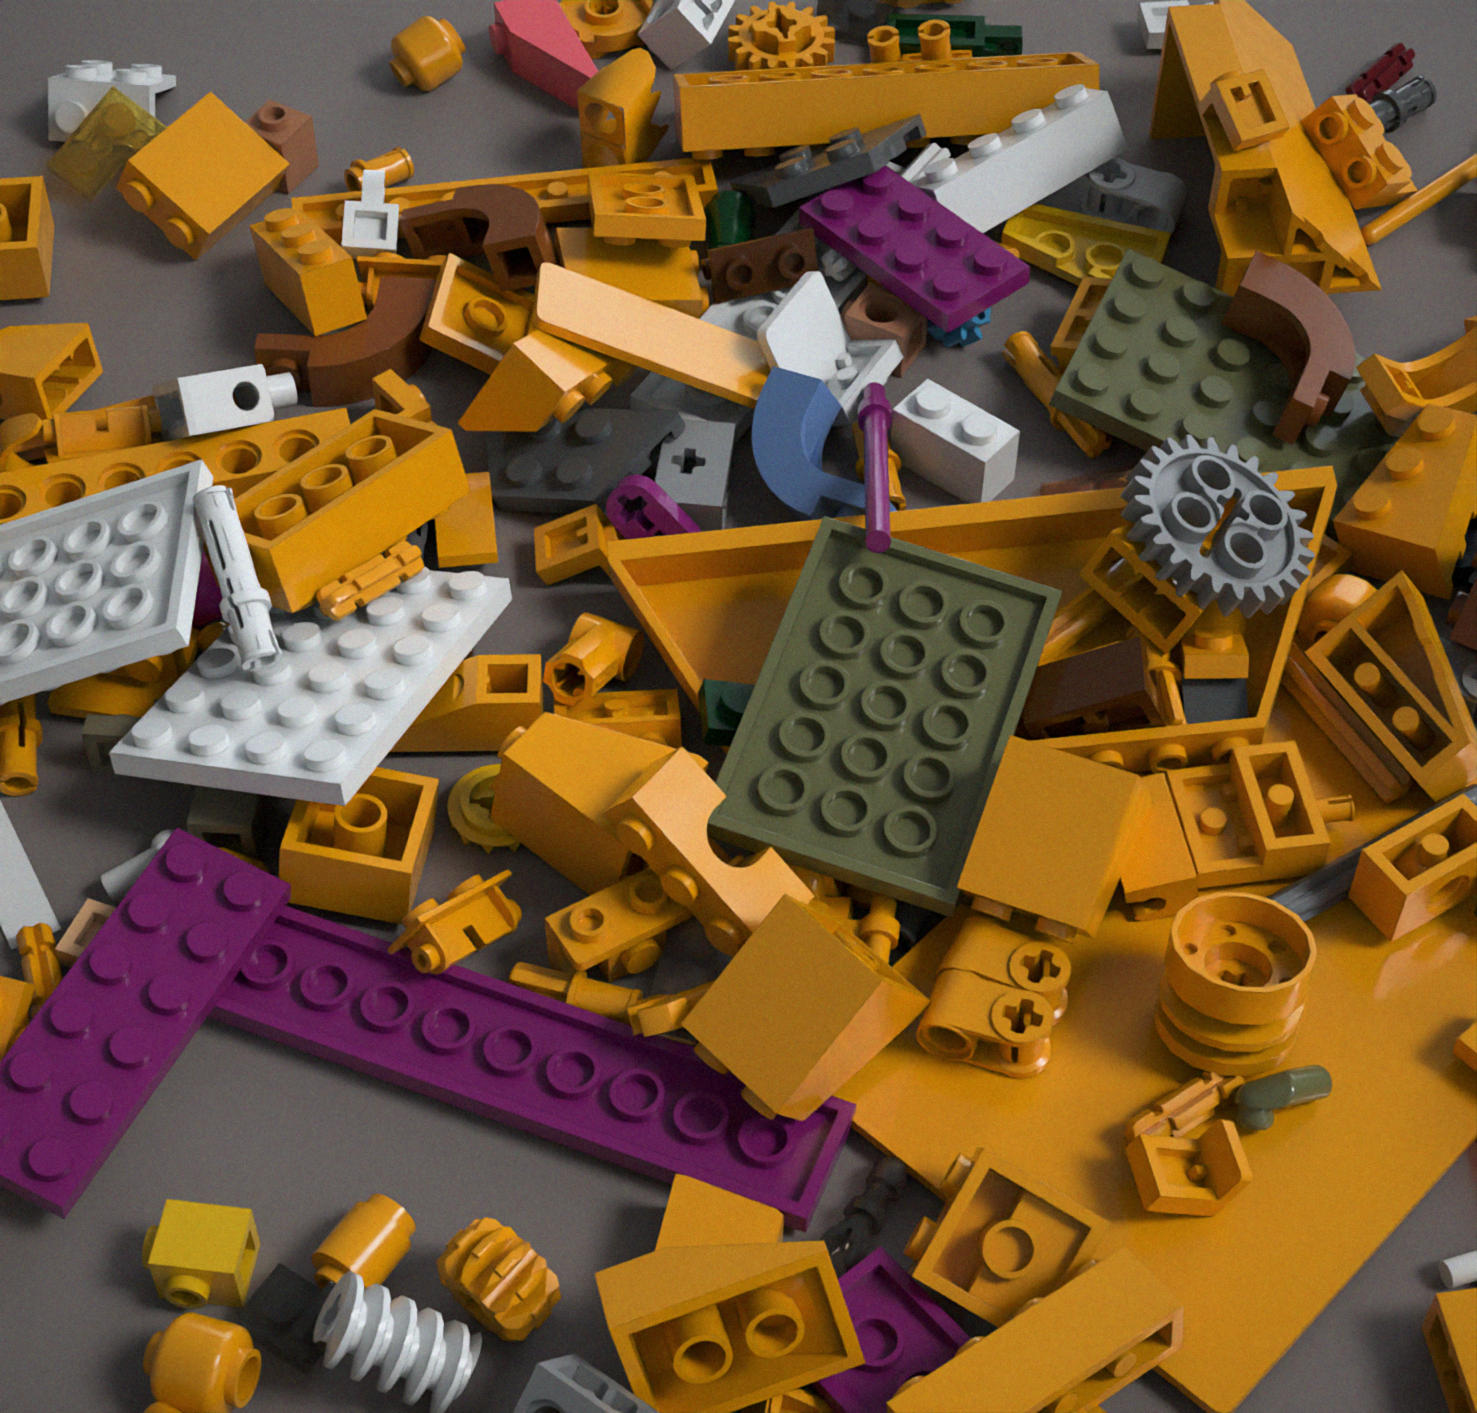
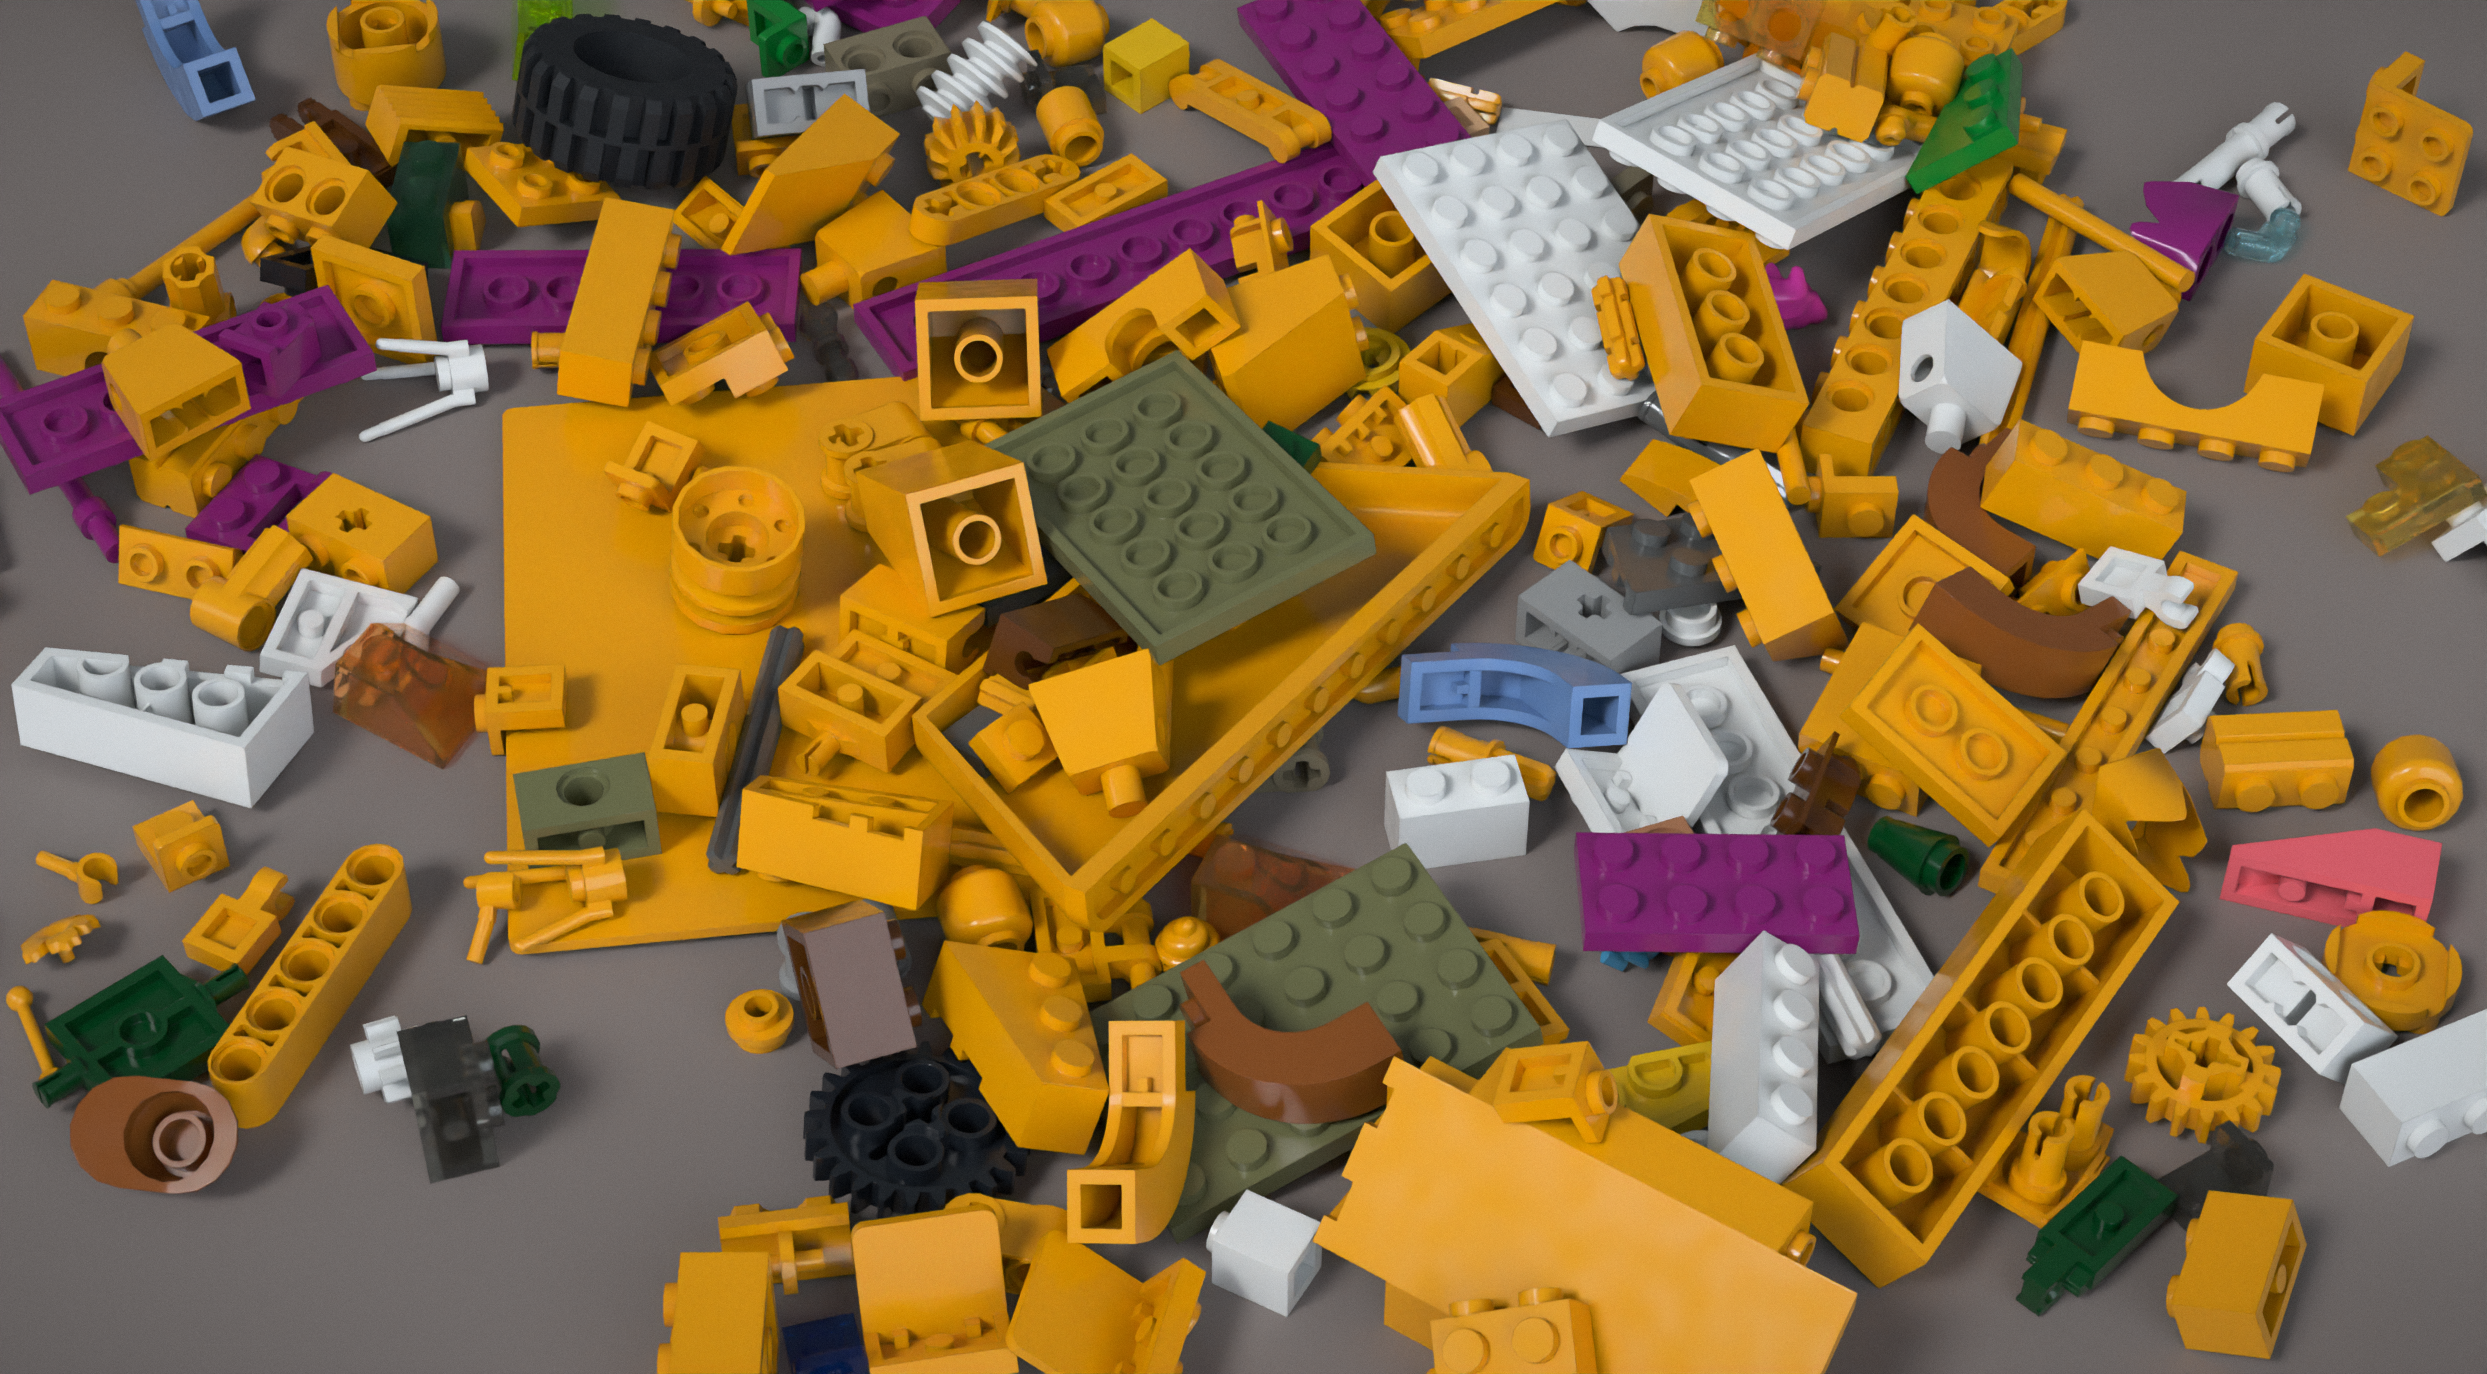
camera: 130 degrees right, 5 degrees down
(139, 322) = (2269, 423): none -> light orange arch
(201, 176) = (2307, 510): light orange brick -> none
(217, 1096) = (1252, 108): none -> light orange plate
(244, 601) = (1625, 206): white pin -> none
(291, 136) = (2332, 600): nougat brick -> none
(448, 1143) = (1105, 193): none -> light orange plate
(453, 162) = (2187, 709): none -> white plate
(467, 116) = (2276, 760): none -> light orange brick
(558, 1189) = (990, 200): none -> light orange beam
(648, 335) = (1750, 609): light orange piece -> none
(659, 517) = (1564, 542): magenta beam -> none
(664, 1011) = (1067, 311): light orange bar -> none
(846, 159) = (1901, 911): dark grey wing -> none
(875, 421) = (1516, 738): magenta bar -> none
(1255, 553) = (1037, 770): light grey gear -> none
(1279, 1090) = (646, 554): olive arm -> none
(1396, 325) = (1264, 1252): none -> white brick

